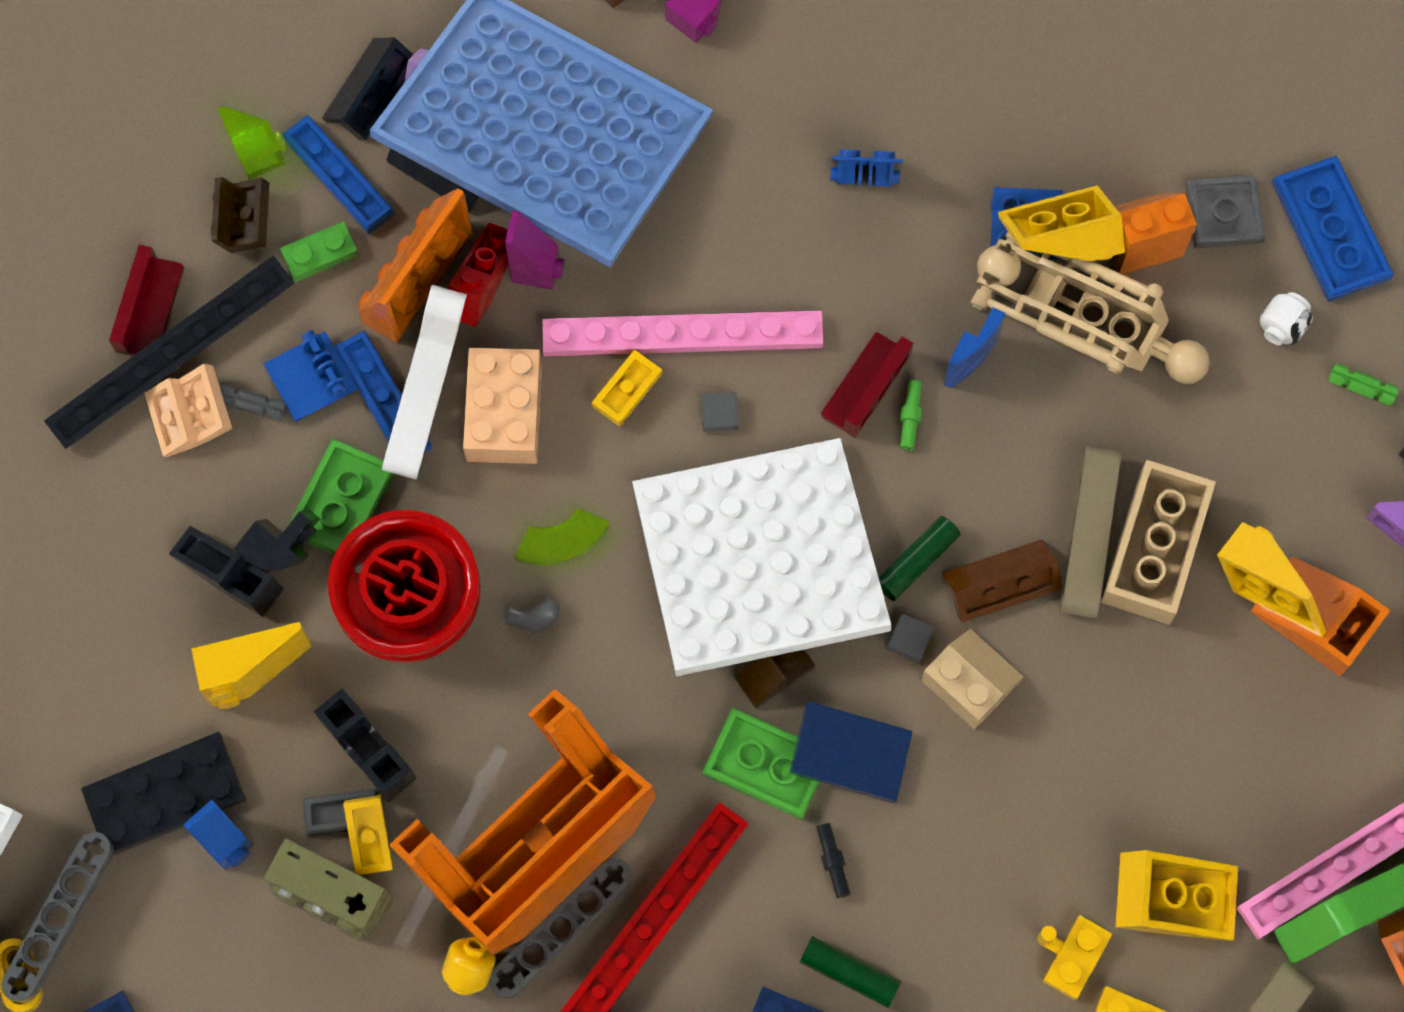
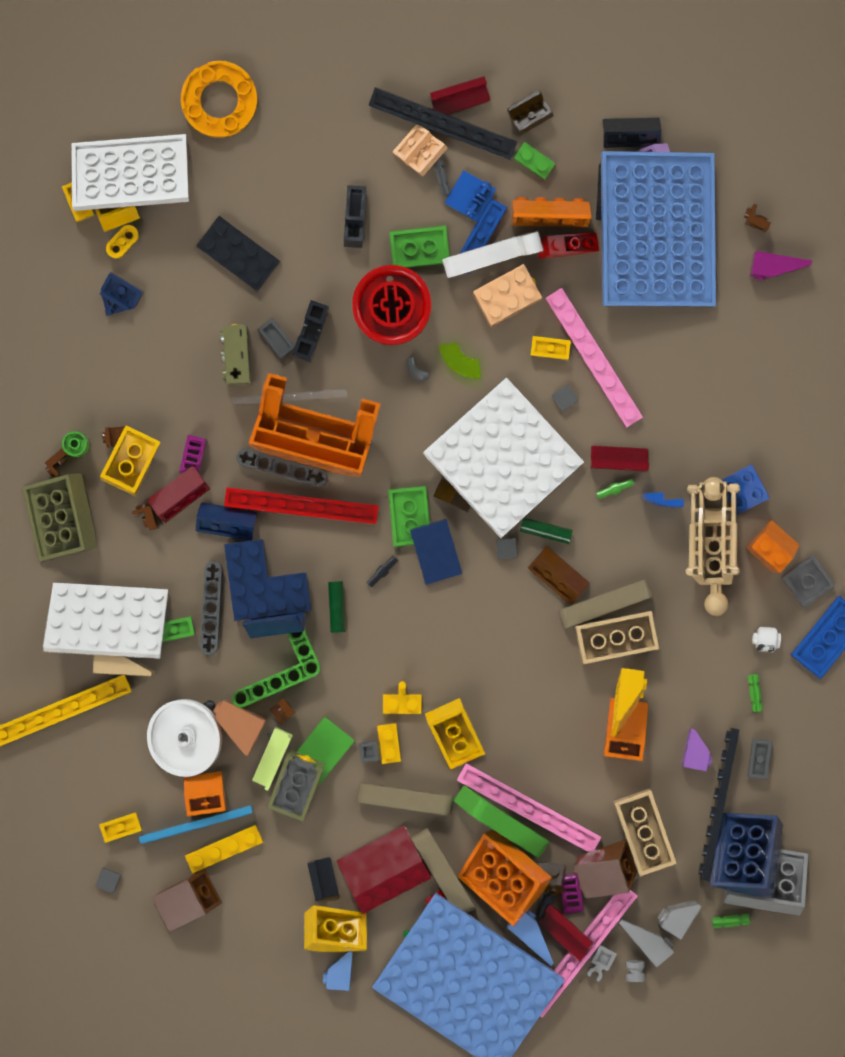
camera: 55 degrees right, 15 degrees up
(41, 928) = (165, 248): dark grey beam -> none
(219, 836) = (232, 292): blue slope -> none
(244, 664) = (312, 253): yellow slope -> none
(254, 142) = (569, 95): clear neon green slope -> none
(276, 550) = (376, 233): black brick -> none
(338, 174) = (578, 145): blue tile -> none
(368, 835) = (272, 357): yellow plate -> none
(467, 966) = (239, 437): yellow head -> none
(532, 254) = (587, 266): magenta slope -> none
(882, 160) = (735, 402): blue hinge -> none
(971, 678) = (504, 587): tan slope -> none
(1068, 225) = (746, 510): yellow slope -> none

